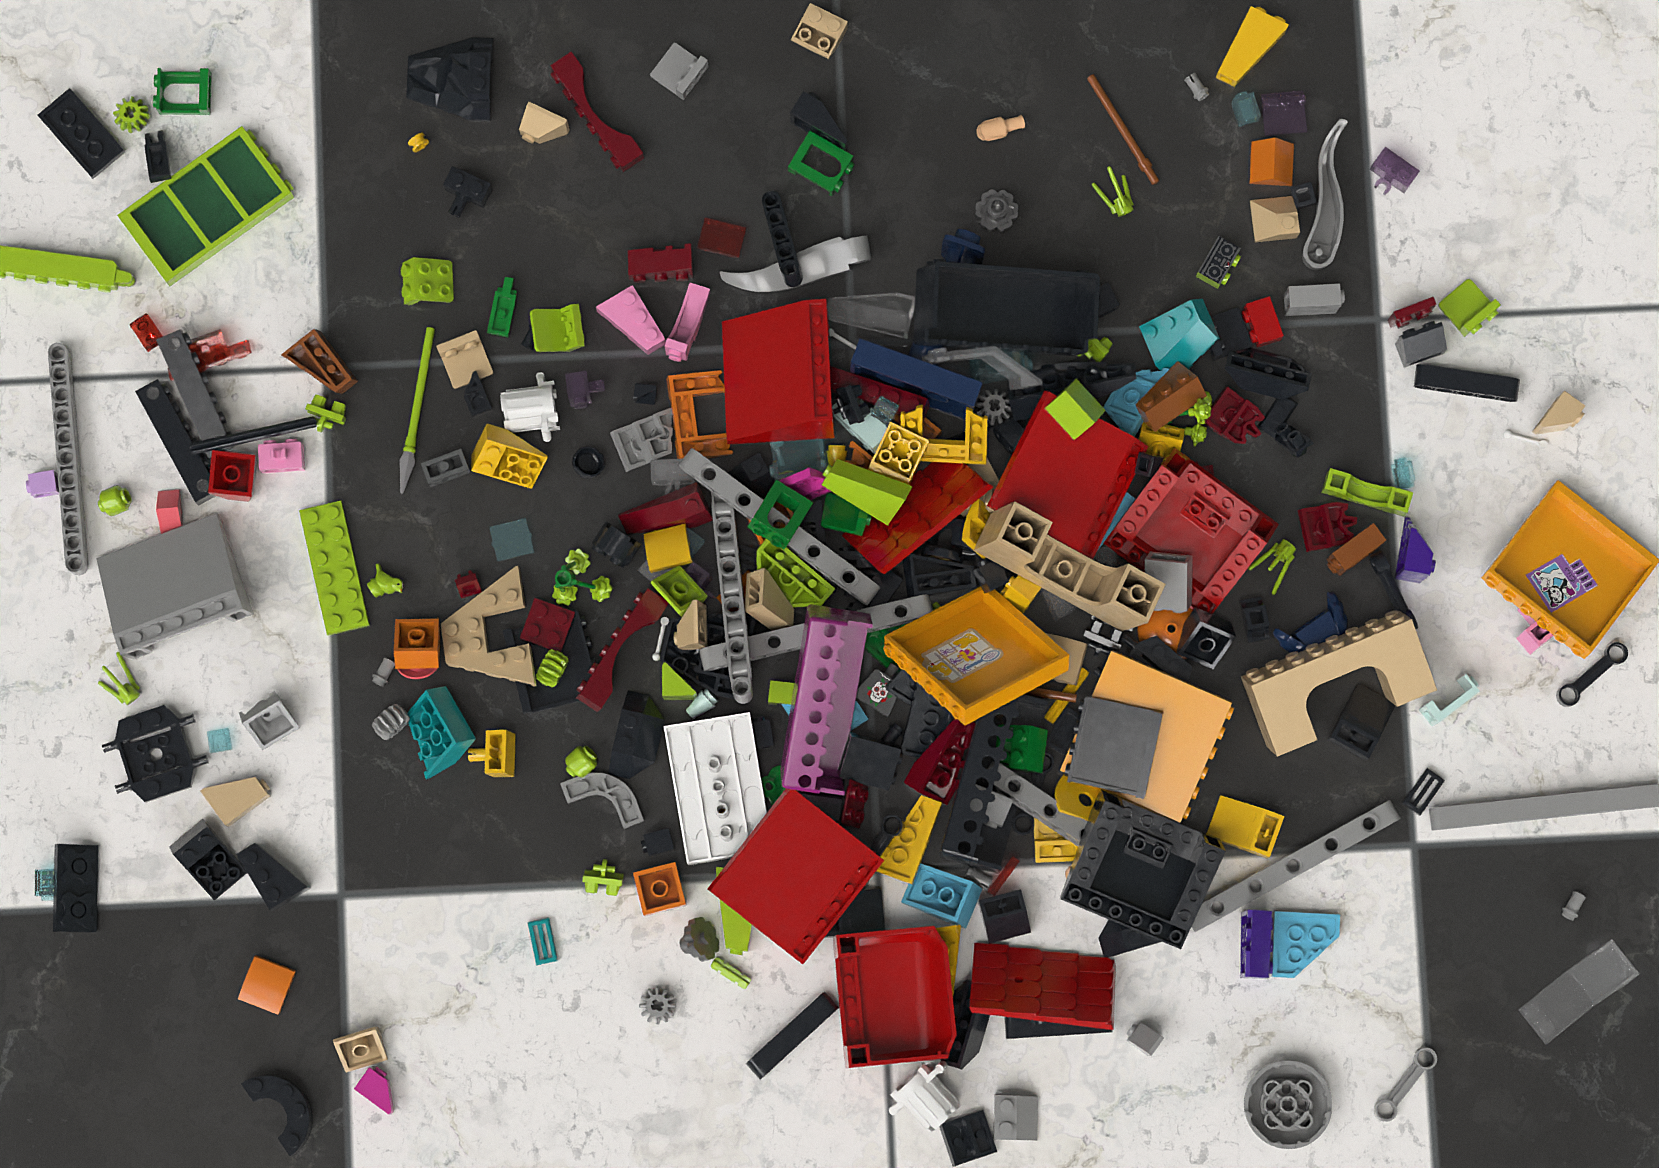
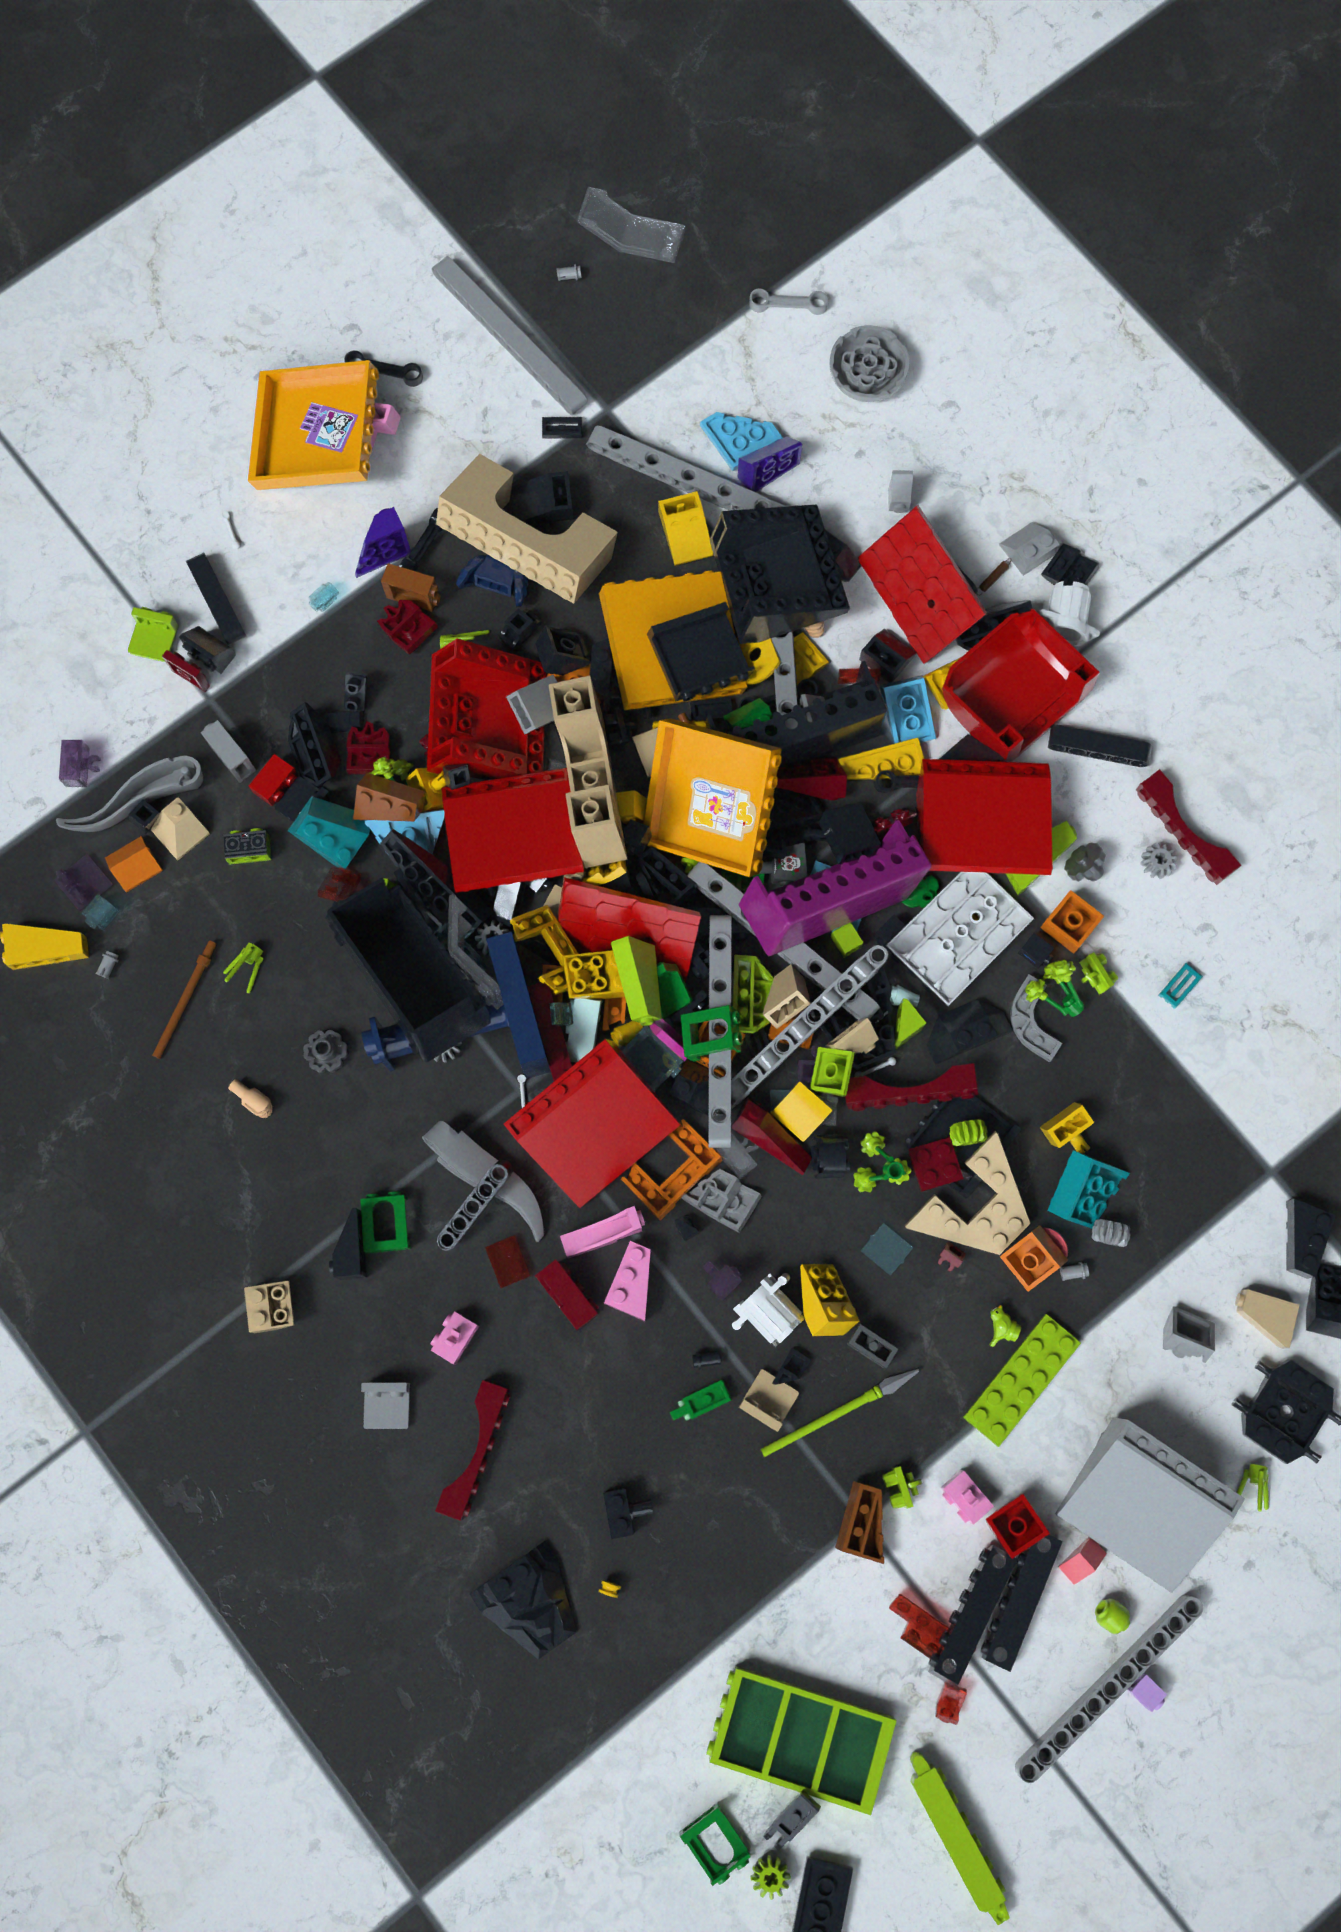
camera: 125 degrees left, 5 degrees down
(219, 740) = (1233, 1367): clear light blue tile -> none
(253, 435) = (971, 1534): black axle -> none
(427, 280) = (725, 1486): lime bracket -> none
(542, 125) = (519, 1488): tan slope -> none
(557, 329) = (686, 1340): lime bracket -> none
(581, 761) = (1021, 1057): lime head -> none
(588, 462) = (778, 1230): black hair -> none
(621, 1054) = (1214, 860): none -> dark red arch
(623, 837) = (1060, 972): none -> plant
(692, 156) = (454, 1337): none -> bright pink brick
(730, 973) = (1089, 824): lime axle -> none
(848, 404) = (579, 1045): black hips -> none
(877, 312) = (477, 1084): clear wedge -> none
(1010, 1065) = (987, 583): none -> reddish brown piece
(1075, 409) = (454, 854): lime slope -> none
(1129, 312) = (338, 884): none -> clear red plate
(1379, 497) = (358, 611): lime arch -> none
(1433, 713) = (497, 451): light aqua panel -> none
(1563, 413) = (193, 512): tan slope -> none

